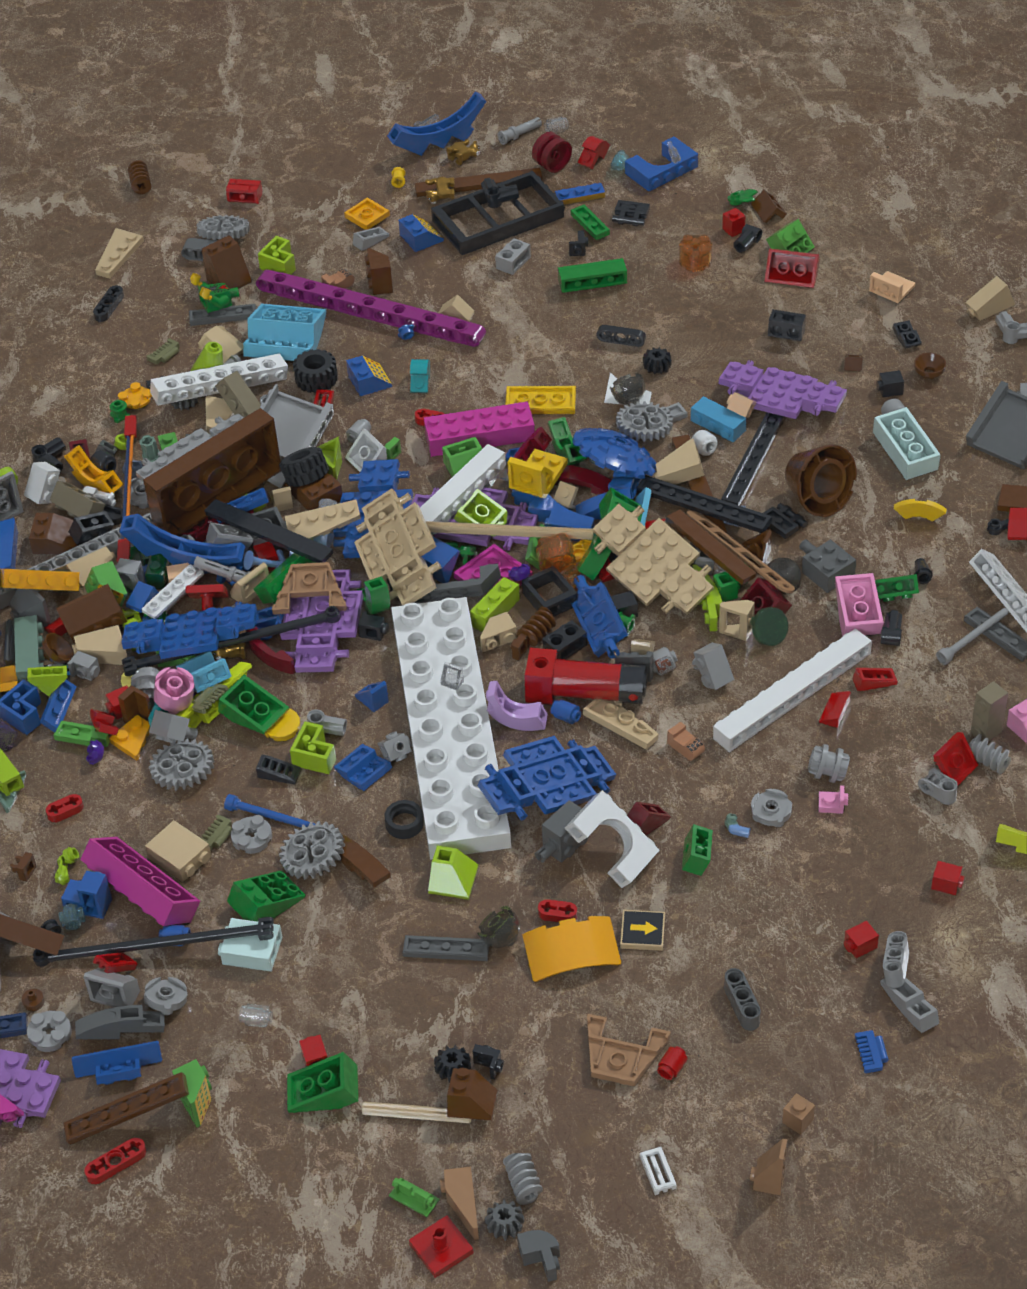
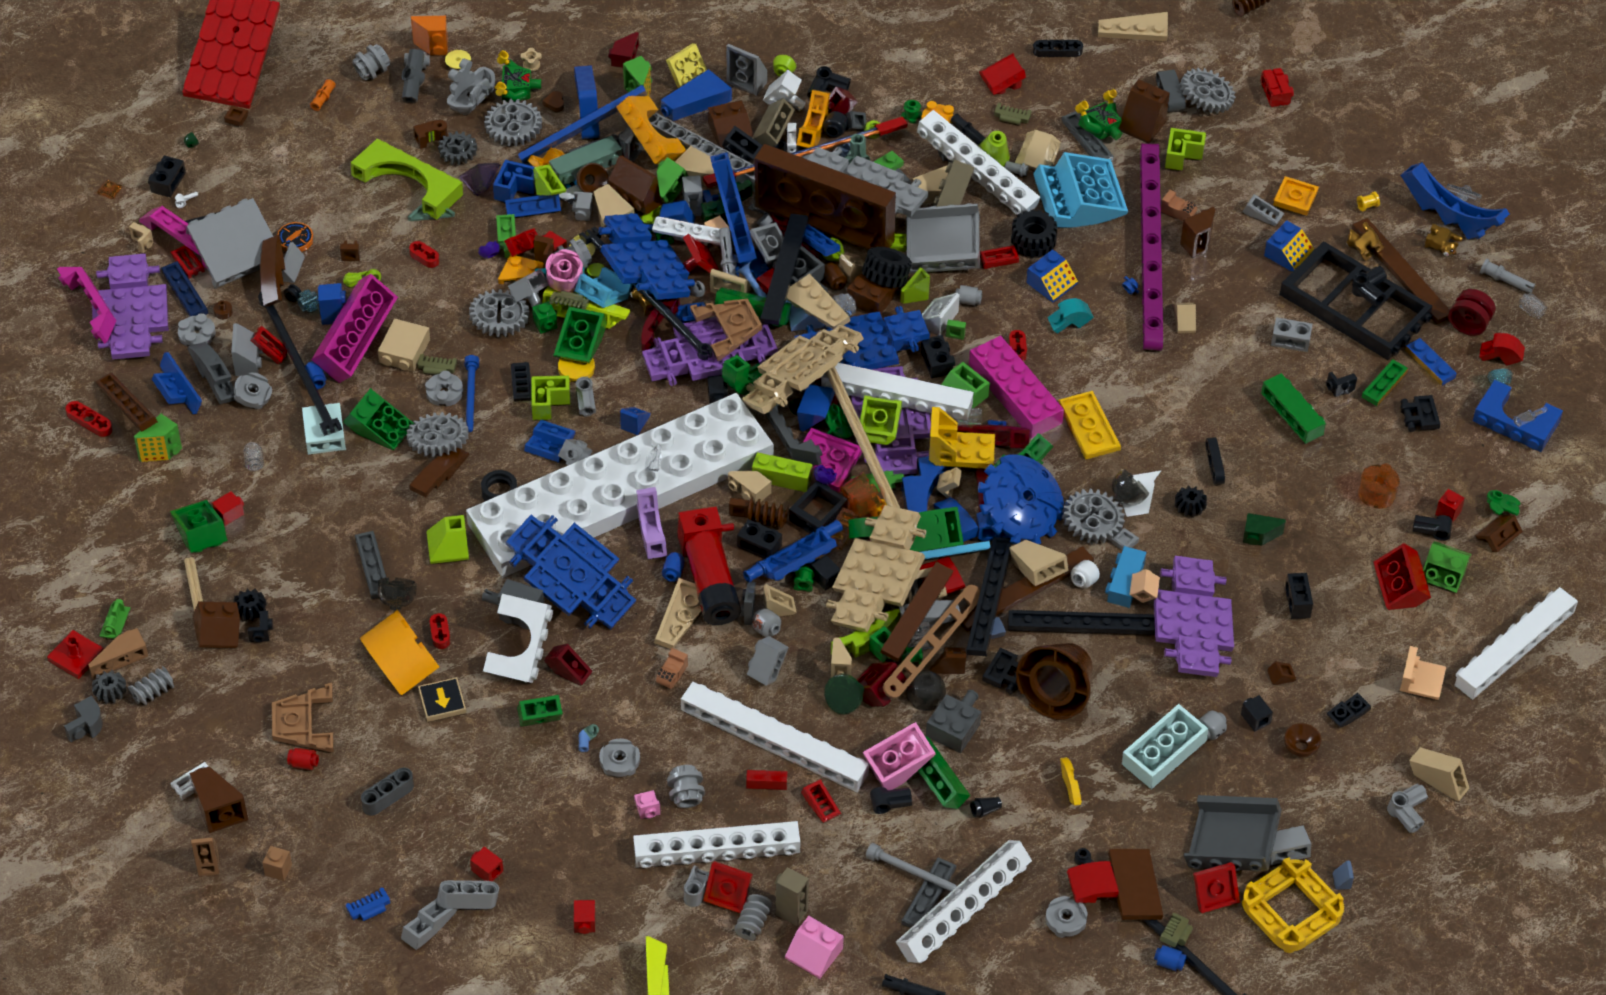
camera: 65 degrees right, 5 degrees up
(116, 342) = (1003, 75): none -> red slope
(210, 729) = (544, 317): none -> green brick
(285, 508) = (835, 276): none -> reddish brown brick
(421, 469) = (937, 356): none -> black brick
(701, 1147) = (217, 800): none -> reddish brown slope
(705, 330) = (1262, 529): none -> dark green slope
(881, 228) = (1515, 643): none -> white brick
(898, 762) = (724, 837): none -> white brick

